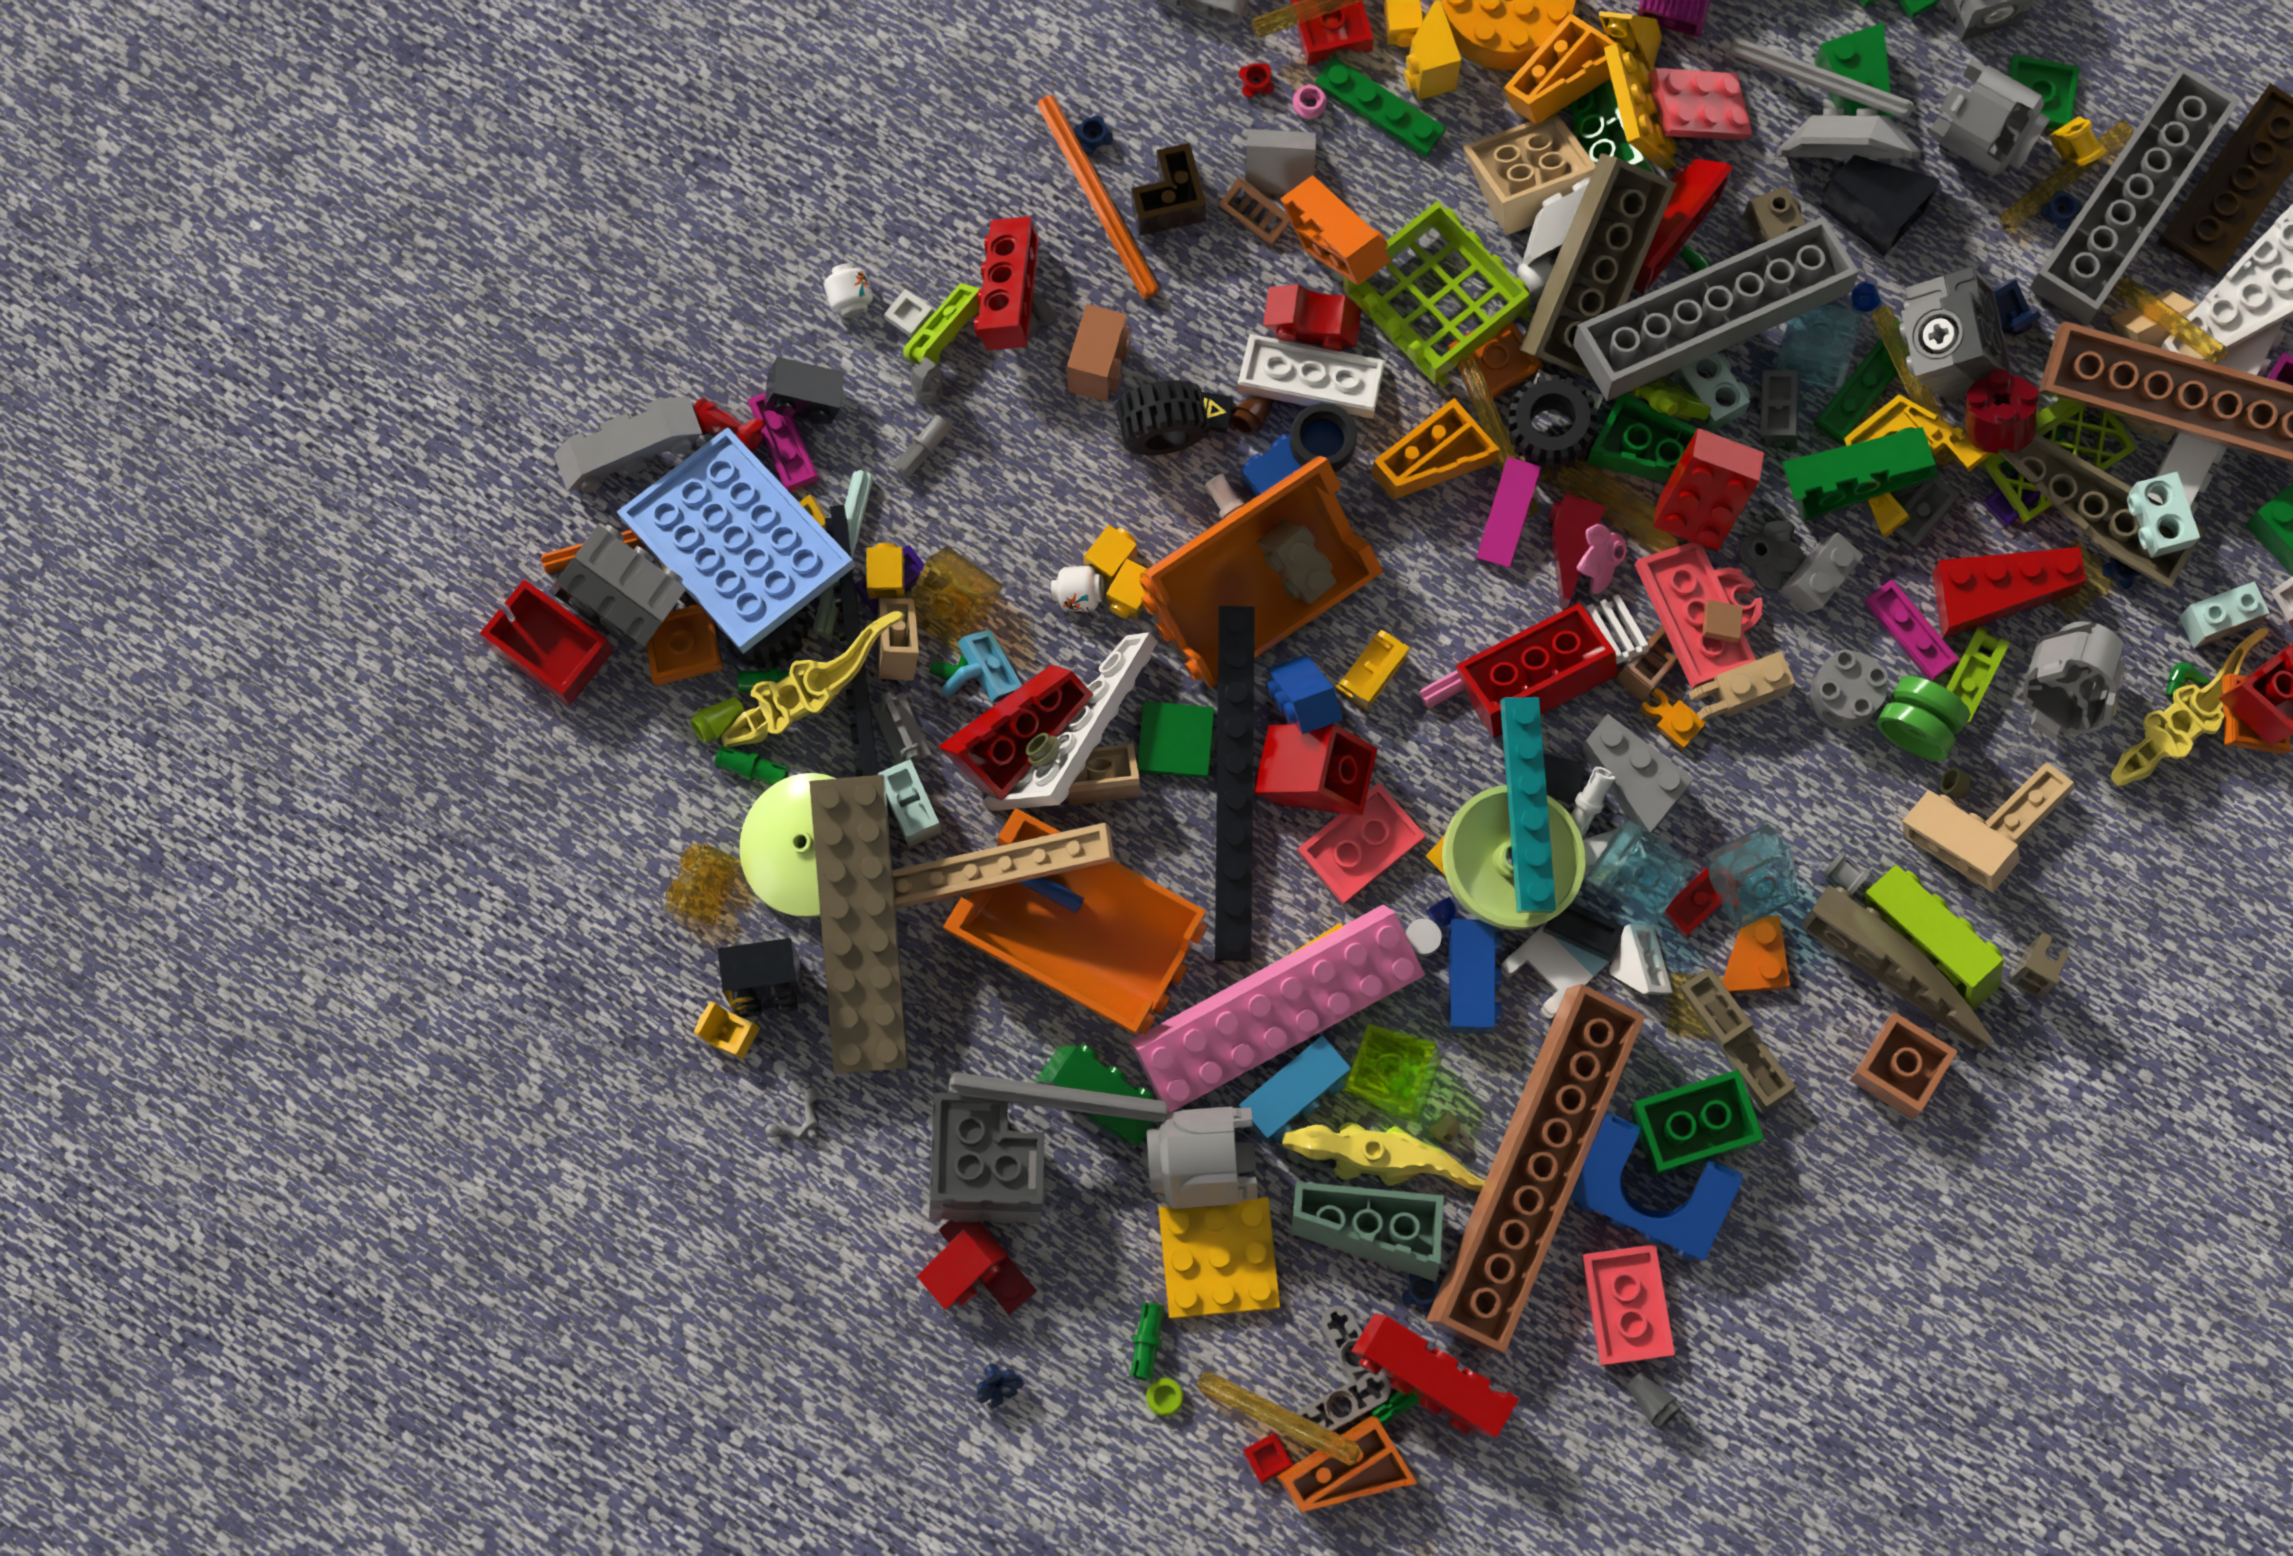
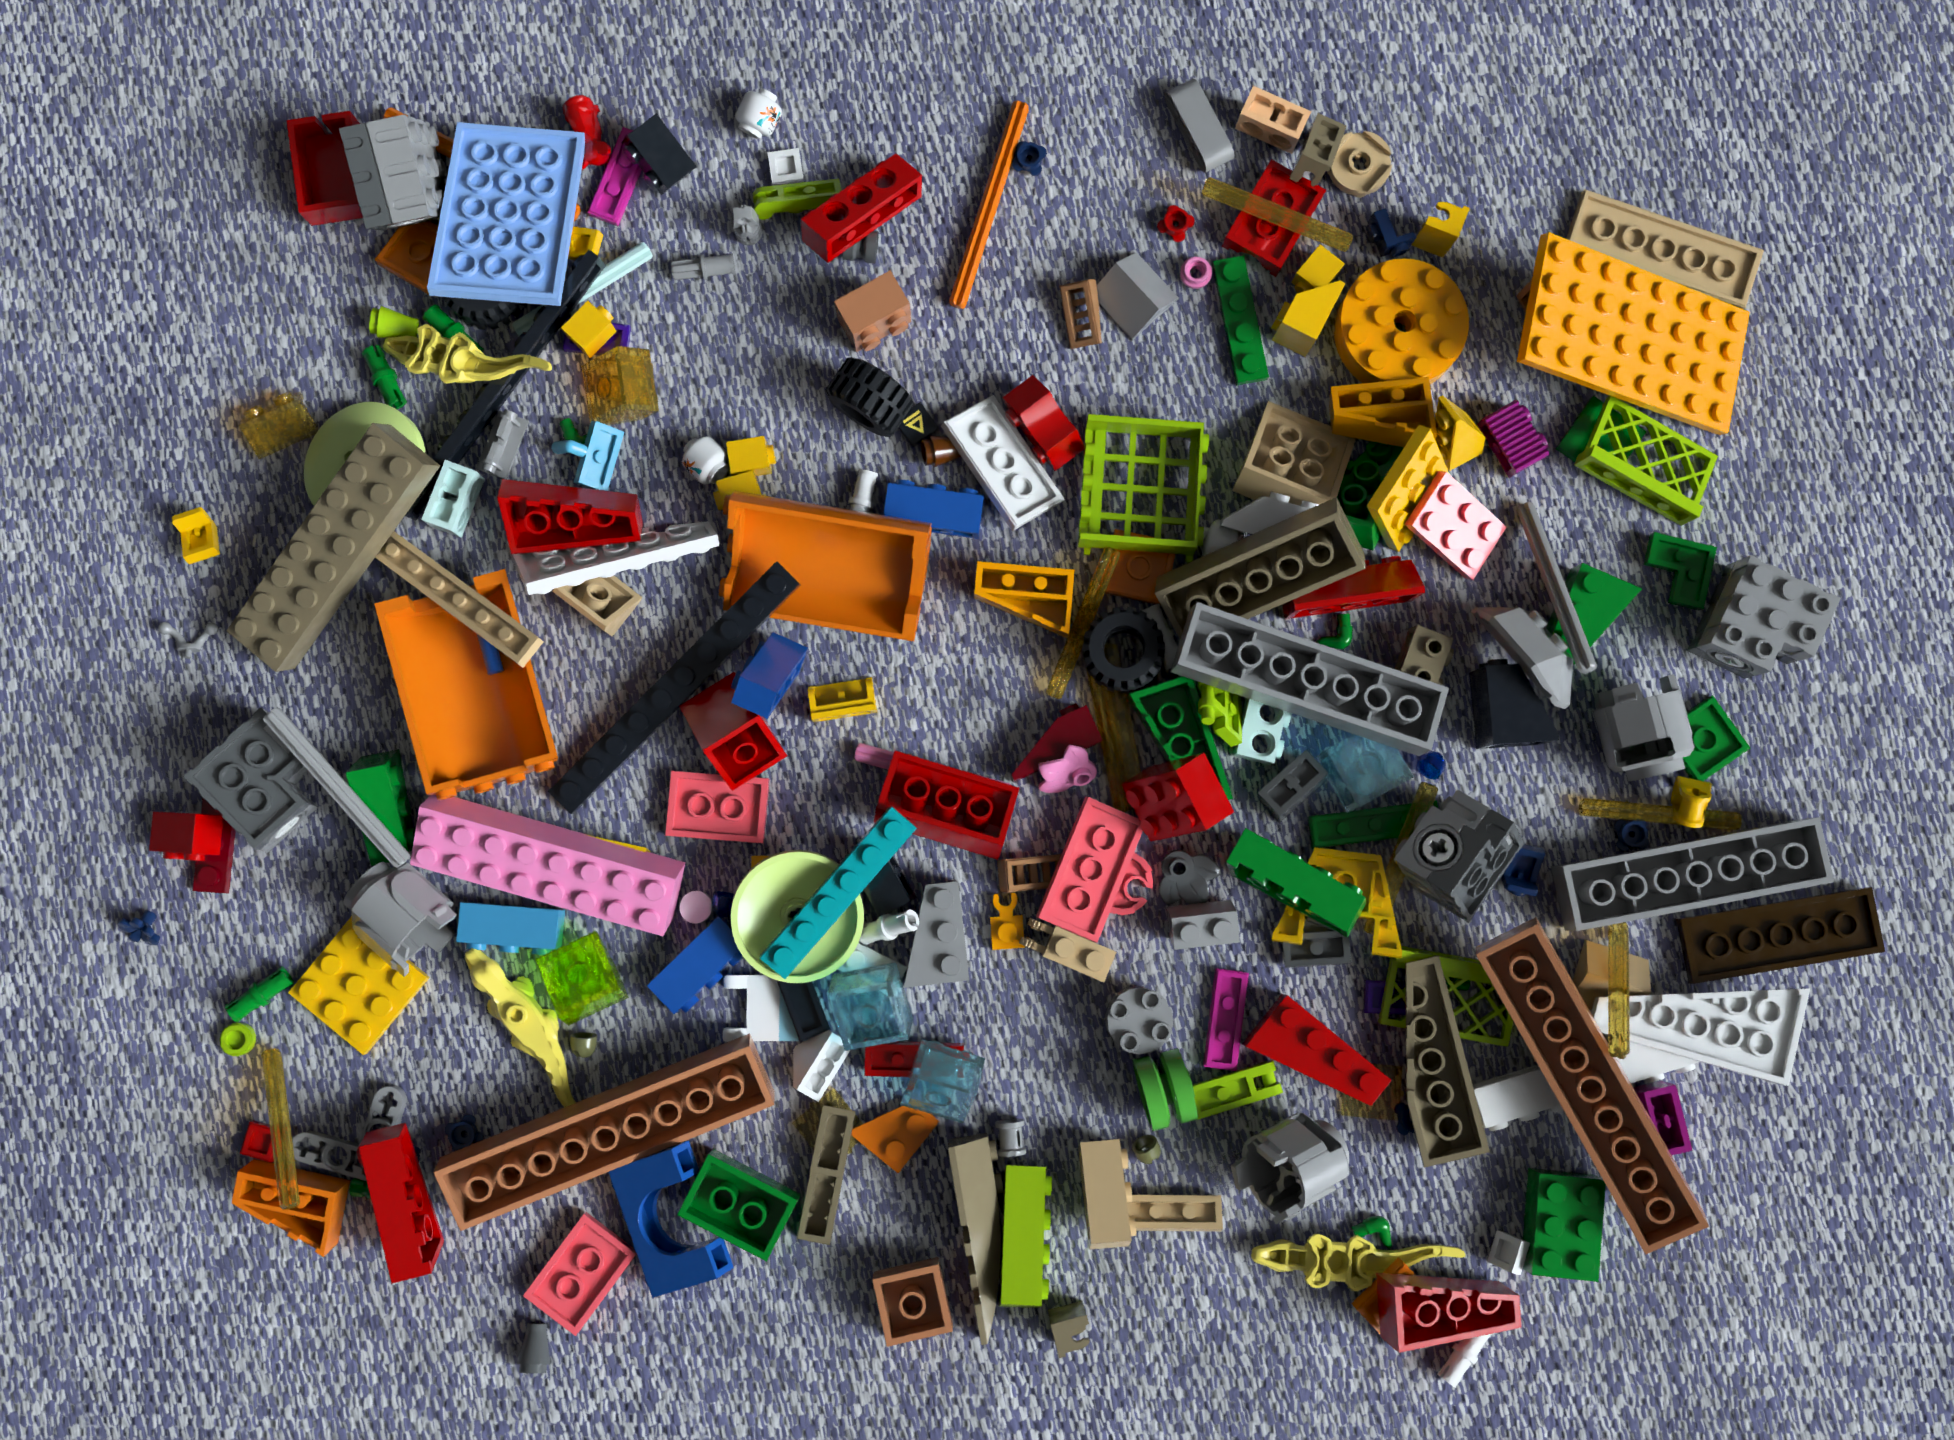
camera: 40 degrees right, 10 degrees up
(627, 443) = (510, 82): light grey brick -> none
(762, 977) = (236, 523): black brick -> none
(897, 645) = (549, 388): tan slope -> none
(1042, 750) = (563, 547): olive plate -> none
(1173, 200) = (1035, 254): dark brown brick -> none
(1175, 739) = (670, 621): green tile -> none
(1295, 559) = (857, 577): dark tan brick -> none
(1329, 413) = (964, 489): black tyre -> none
(1334, 232) = (1112, 379): orange wedge -> none
(1373, 1224) = (471, 1069): sand green wedge -> none
(1509, 512) = (1037, 681): dark pink tile -> none
(1607, 608) = (1037, 806): white tile -> none
(1722, 621) = (1100, 893): medium nougat tile -> none
(2001, 412) = (1430, 939): dark red brick -> none
(2174, 514) = (1476, 1121): light aqua brick -> none
(2224, 615) = (1445, 1217): light aqua brick -> none

